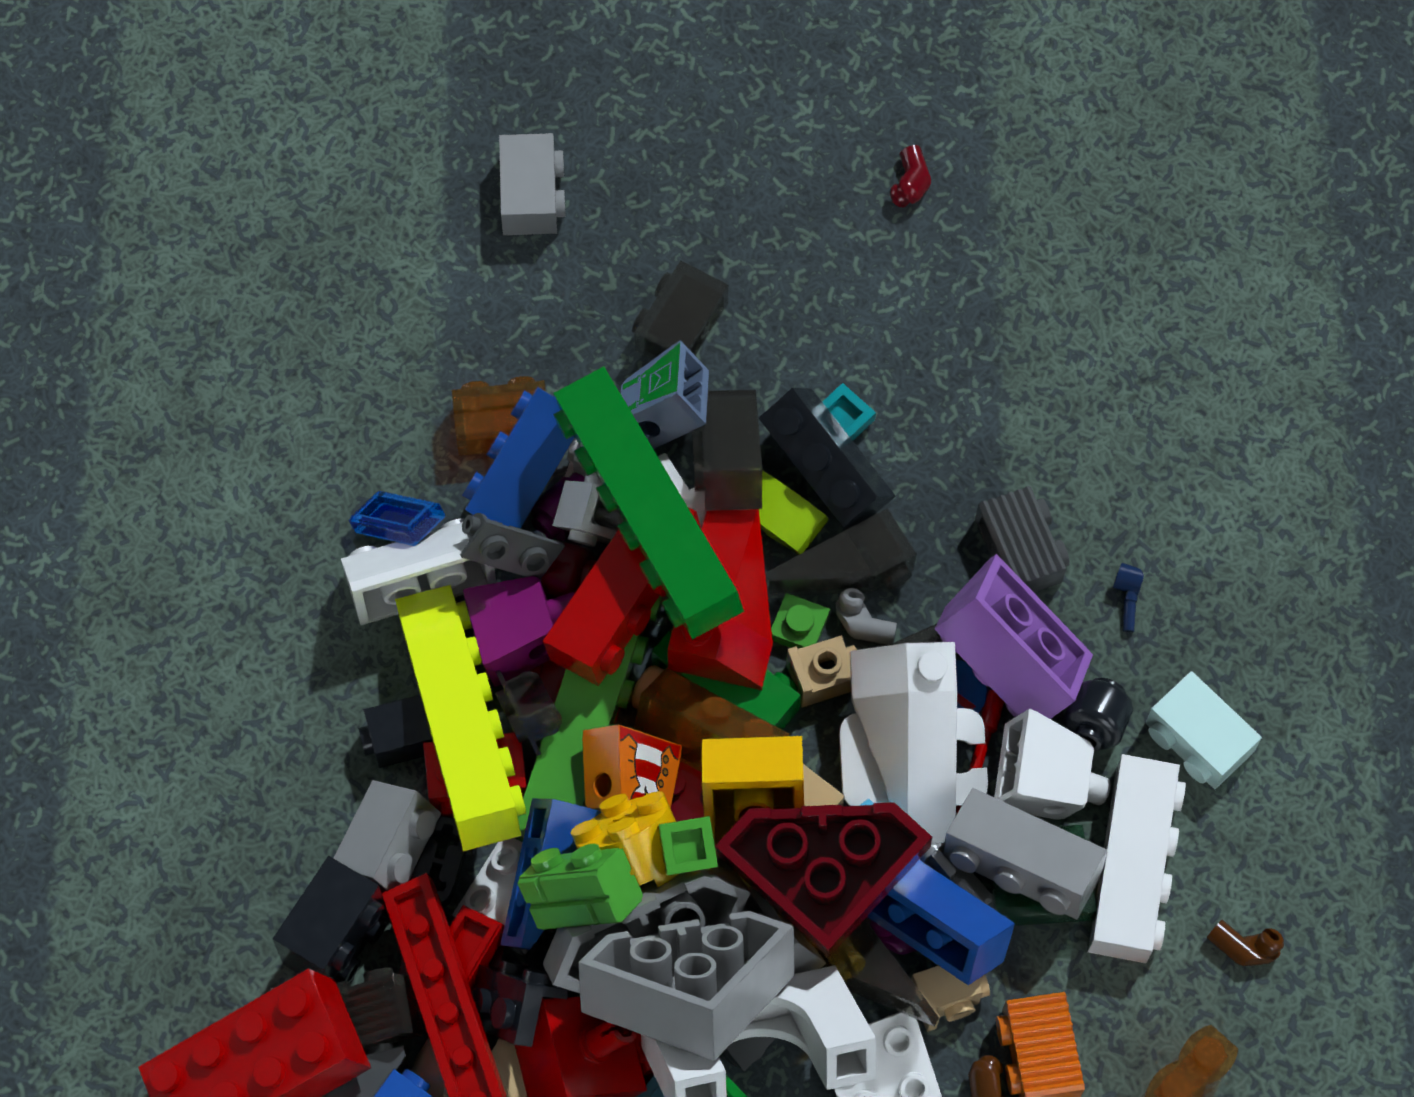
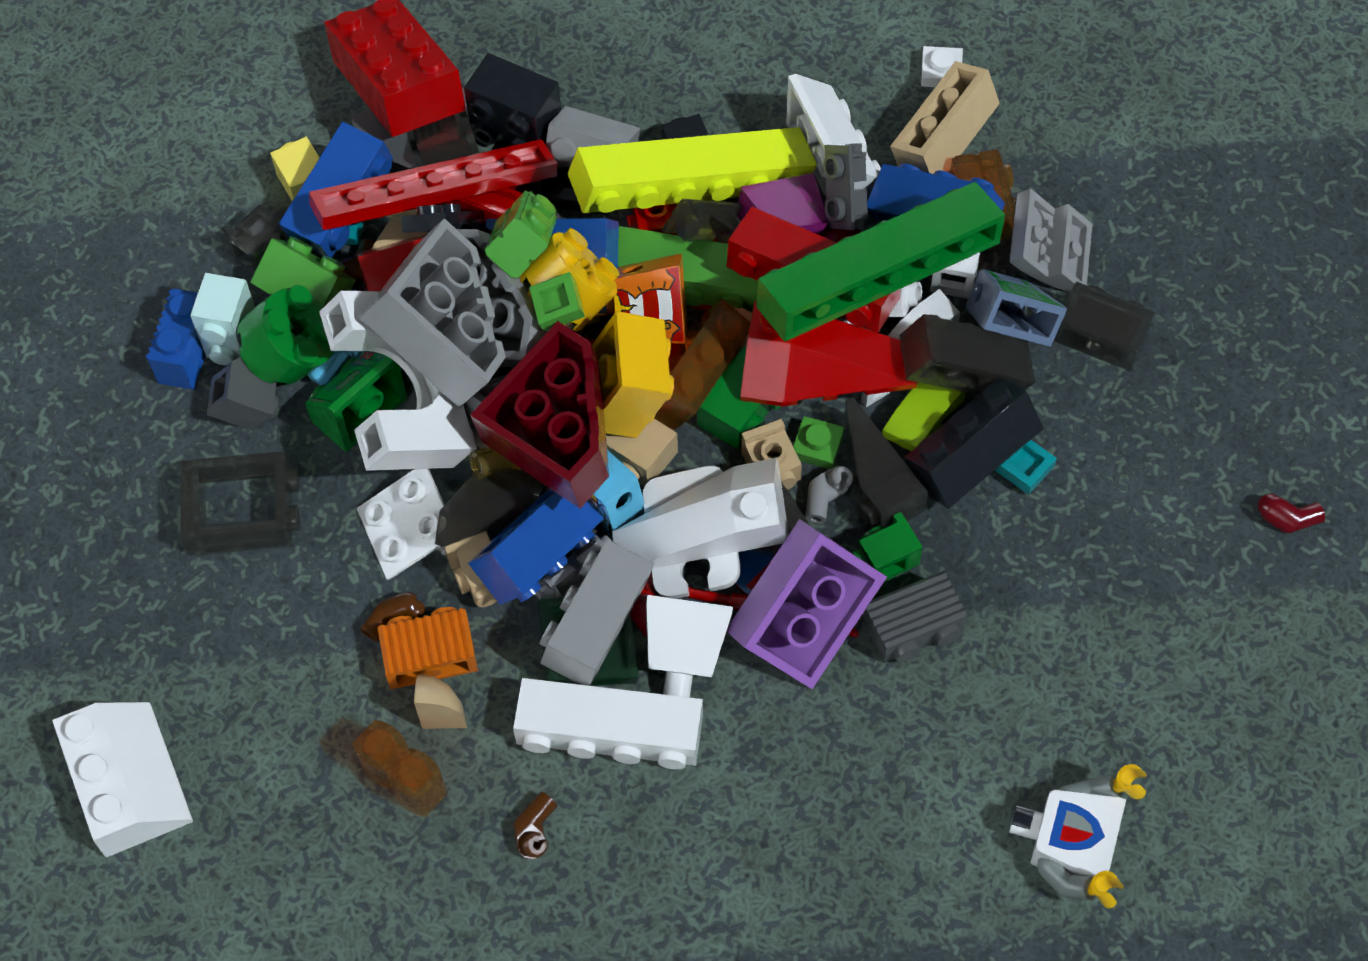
camera: 90 degrees right, 5 degrees down
(306, 445) = (937, 62): none -> white plate
(397, 518) = (875, 124): clear blue tile -> none
(405, 443) = (947, 119): none -> tan brick
(529, 184) = (1217, 199): light grey brick -> none
(568, 351) = (1050, 241): none -> light grey slope
(942, 560) = (890, 548): none -> green brick
(1099, 713) = (744, 684): black head -> none
(1110, 1039) = (437, 704): none -> tan brick
(1129, 580) = (888, 721): dark blue hand -> none
(1202, 731) = (737, 780): light aqua brick -> none
(1264, 415) = (1080, 834): none -> torso

